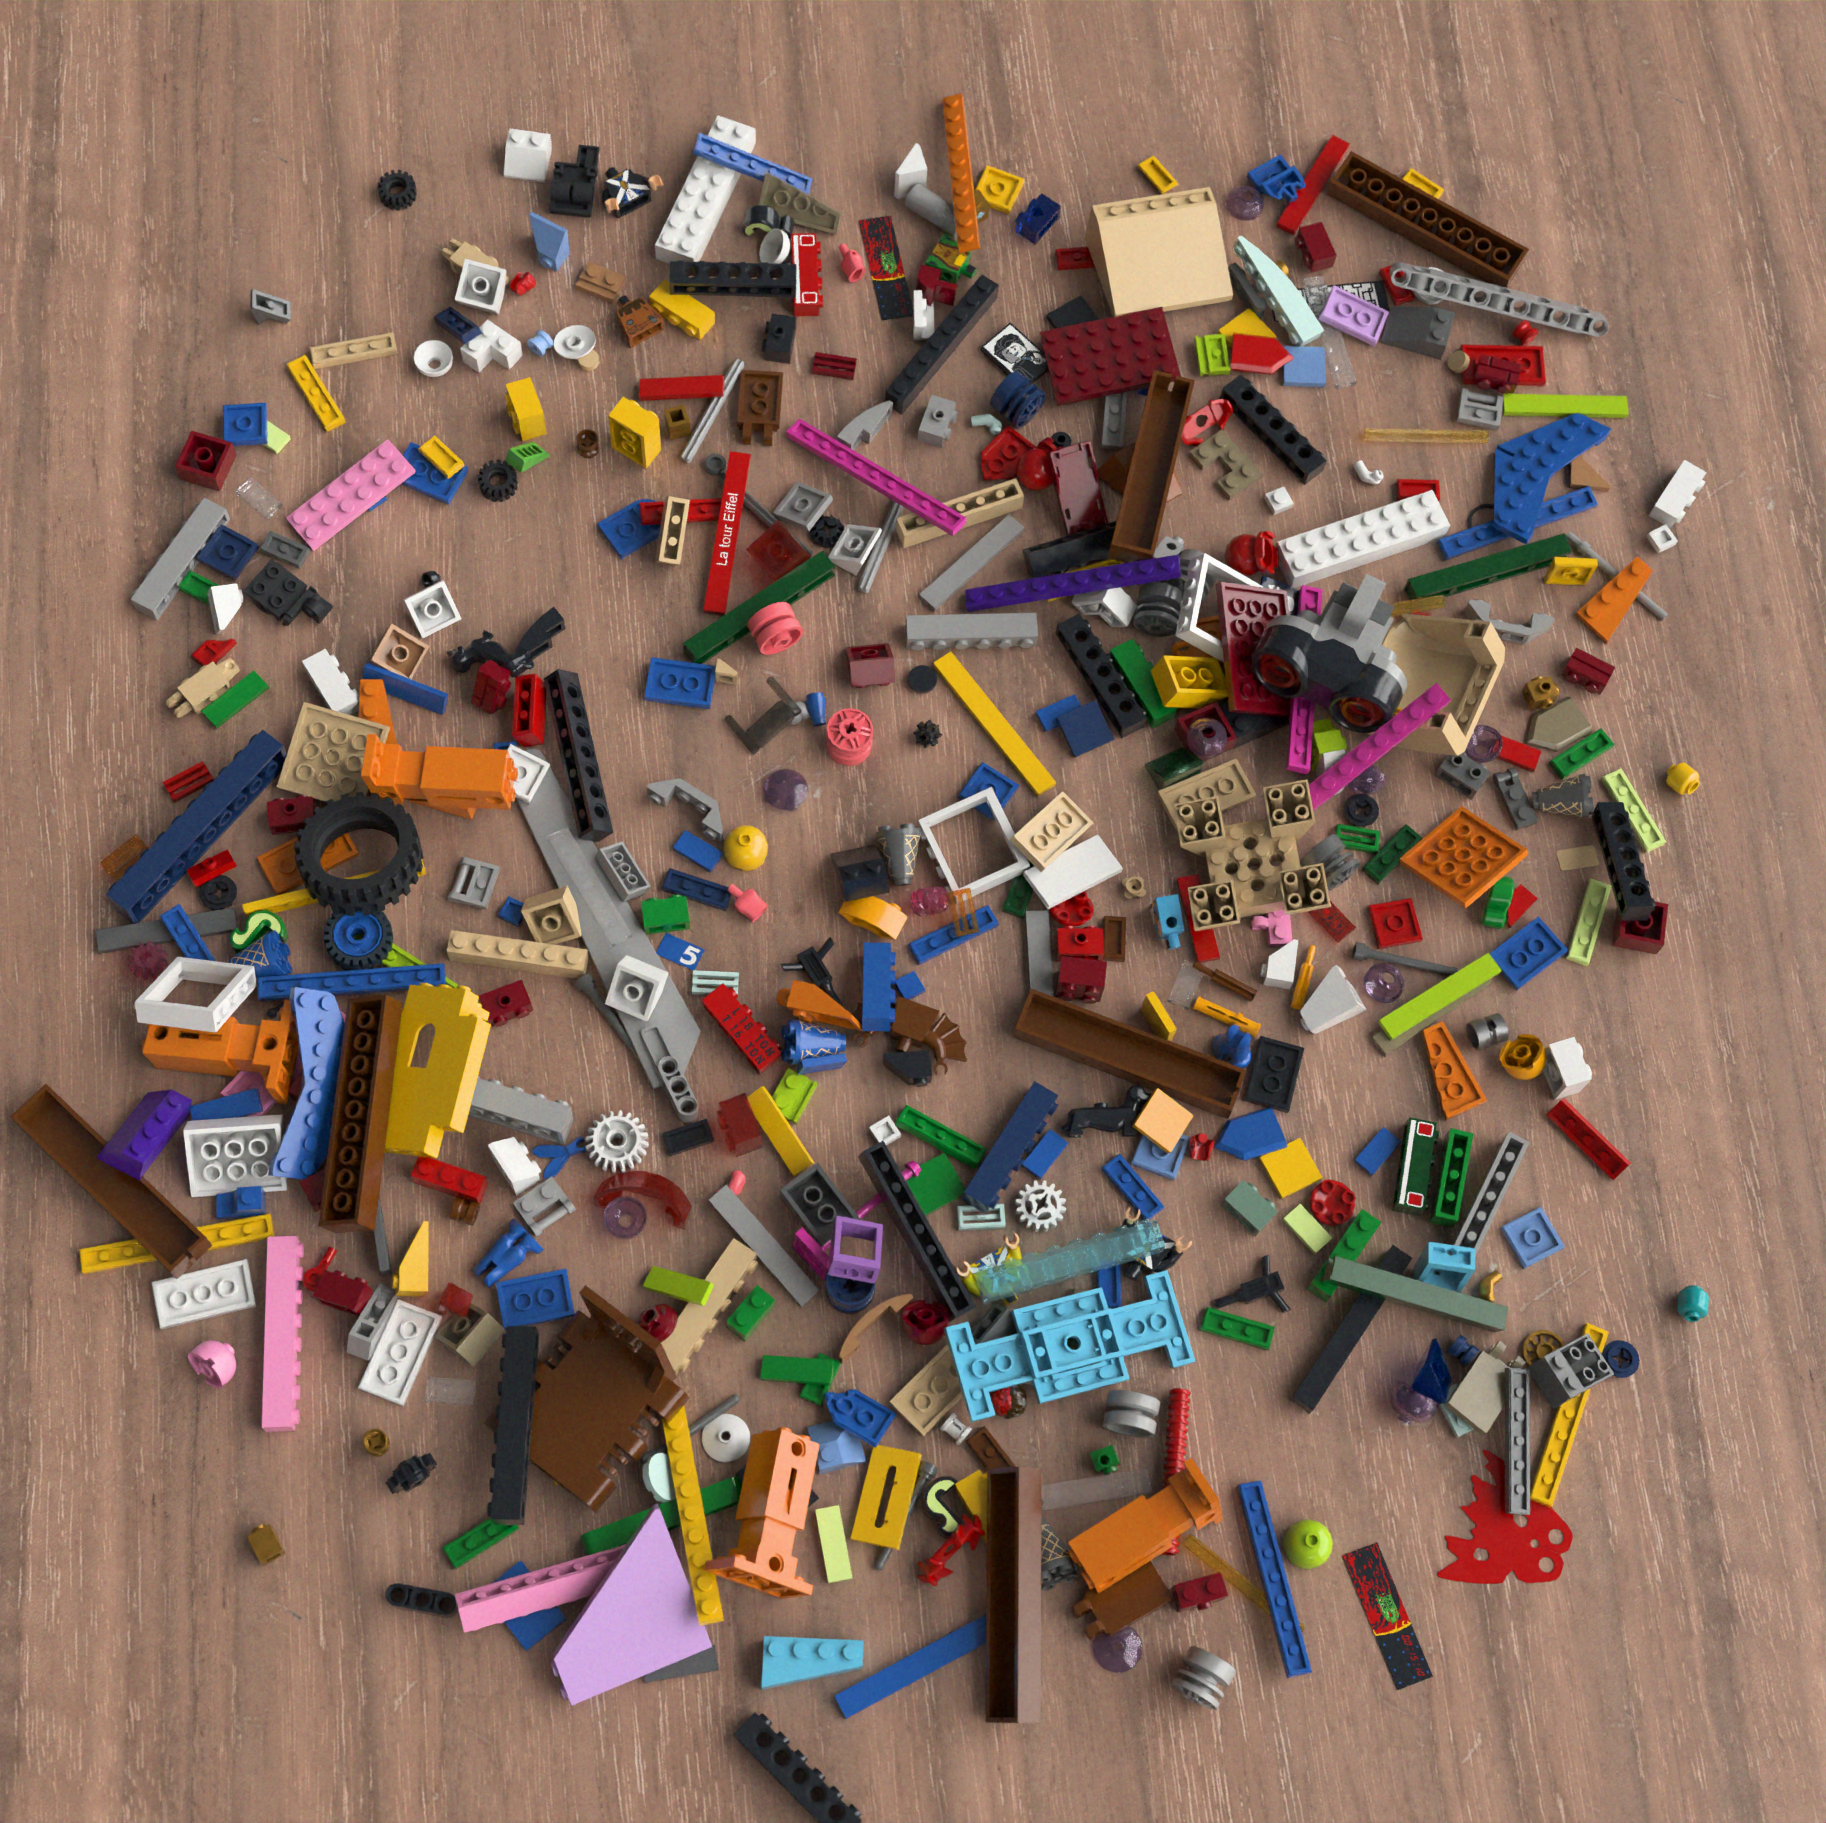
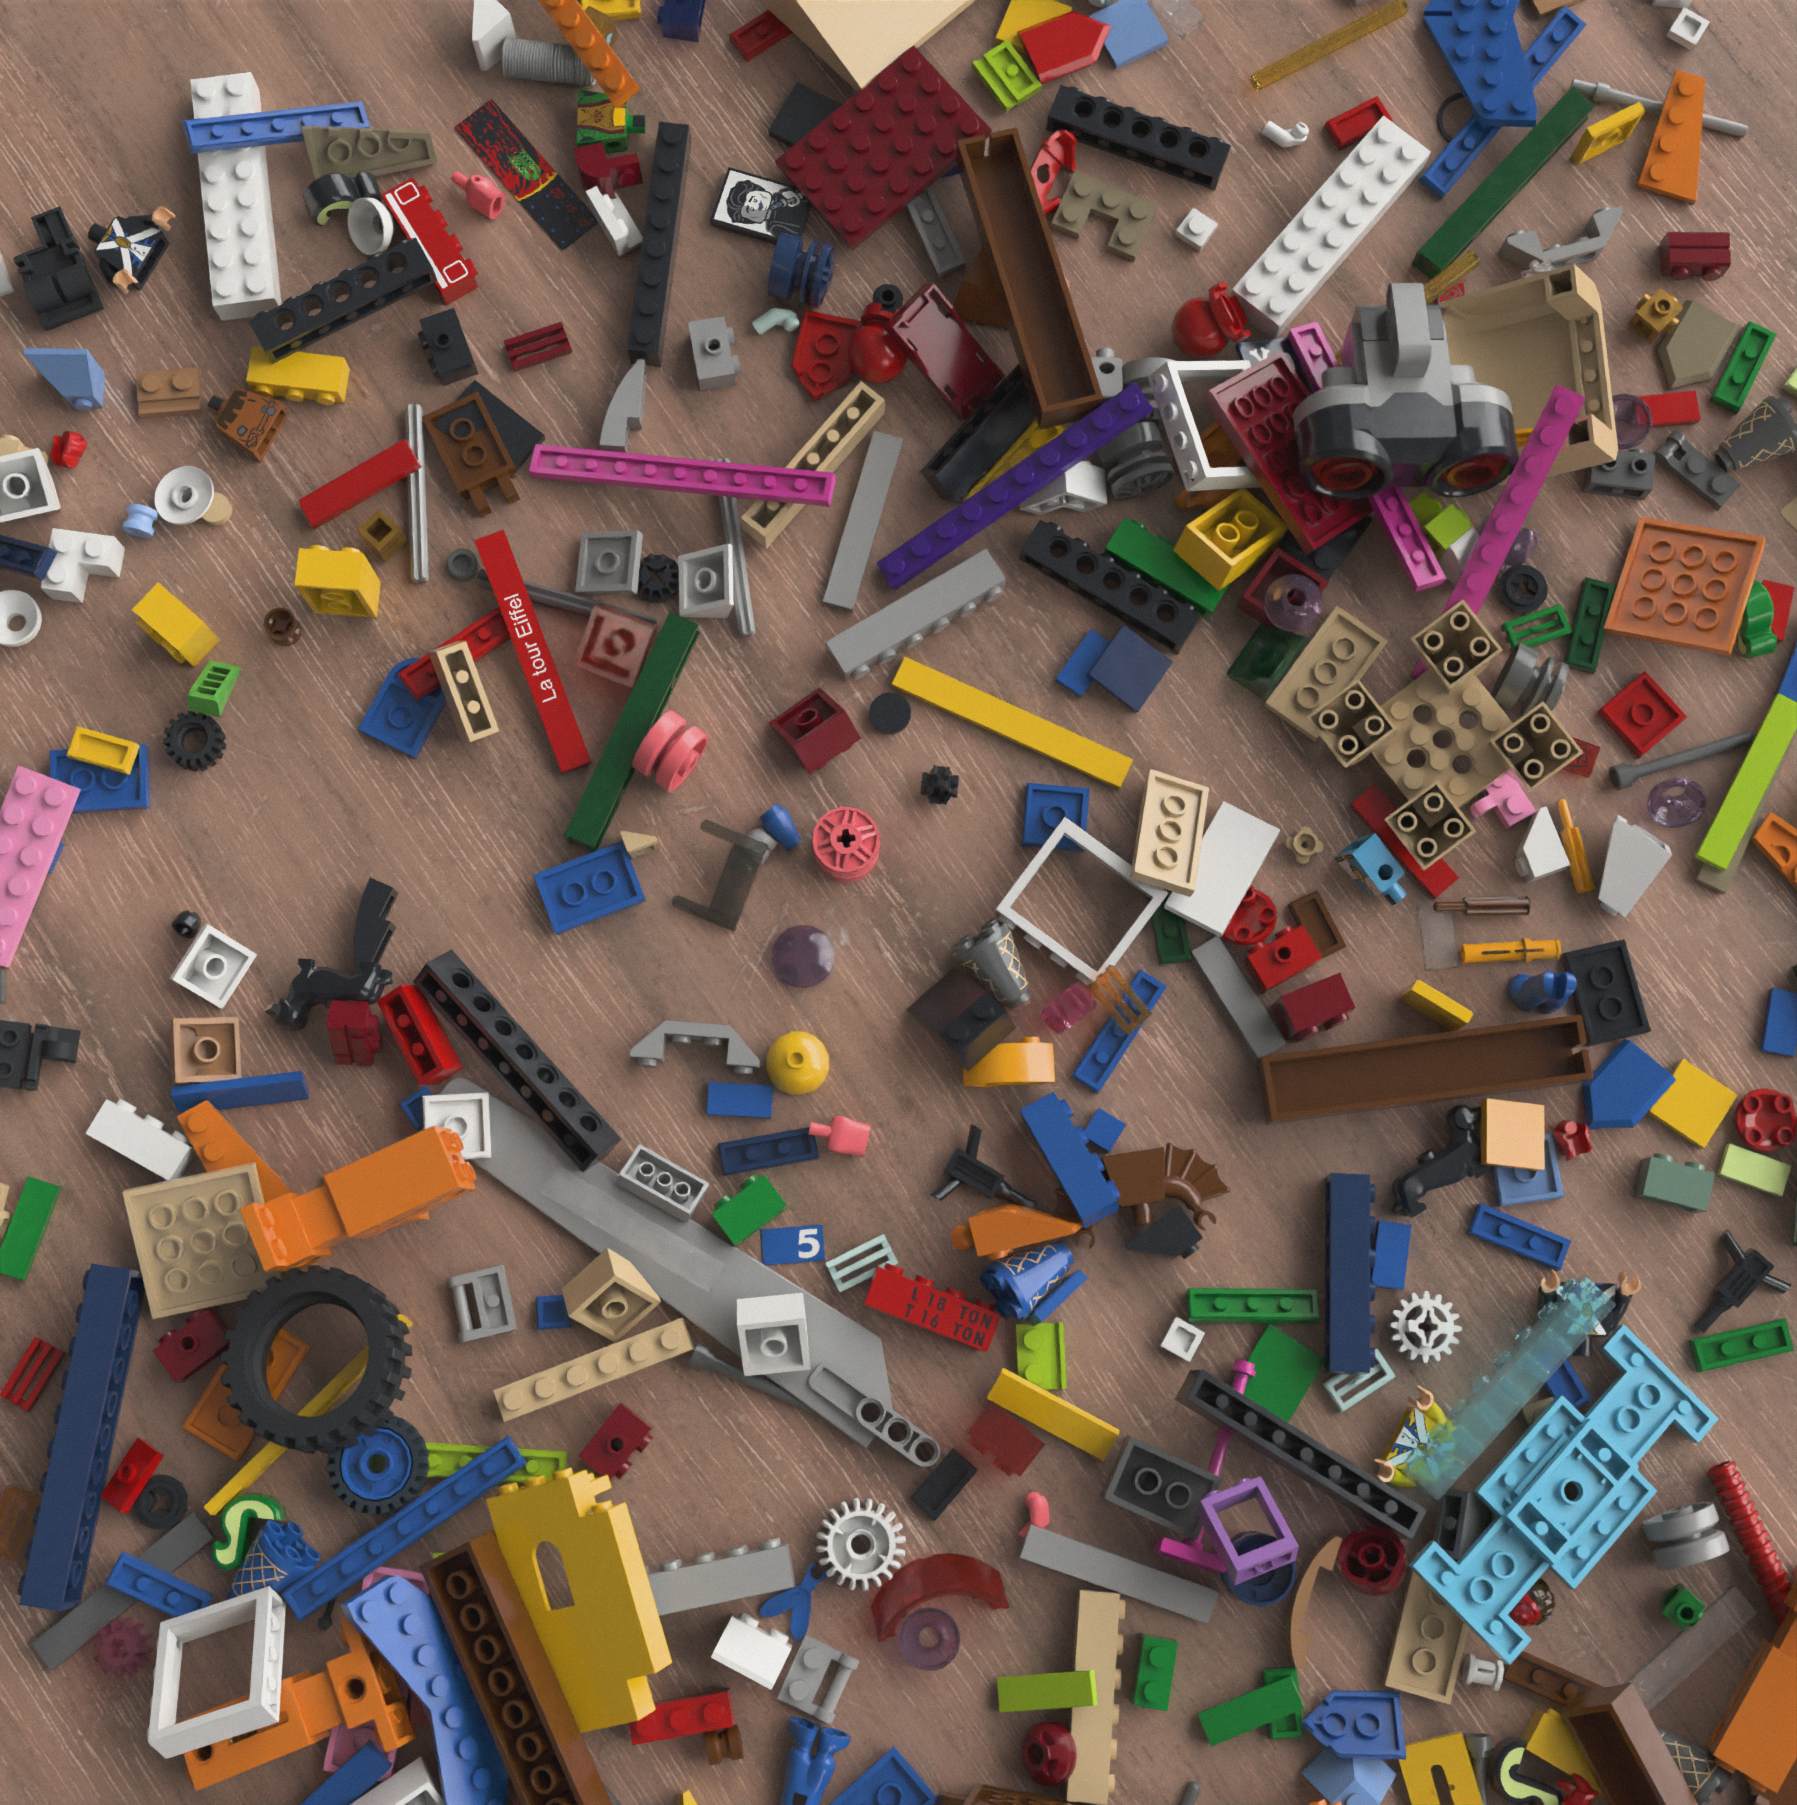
camera: 25 degrees left, 10 degrees up
(791, 404) = (513, 429): none -> black tile

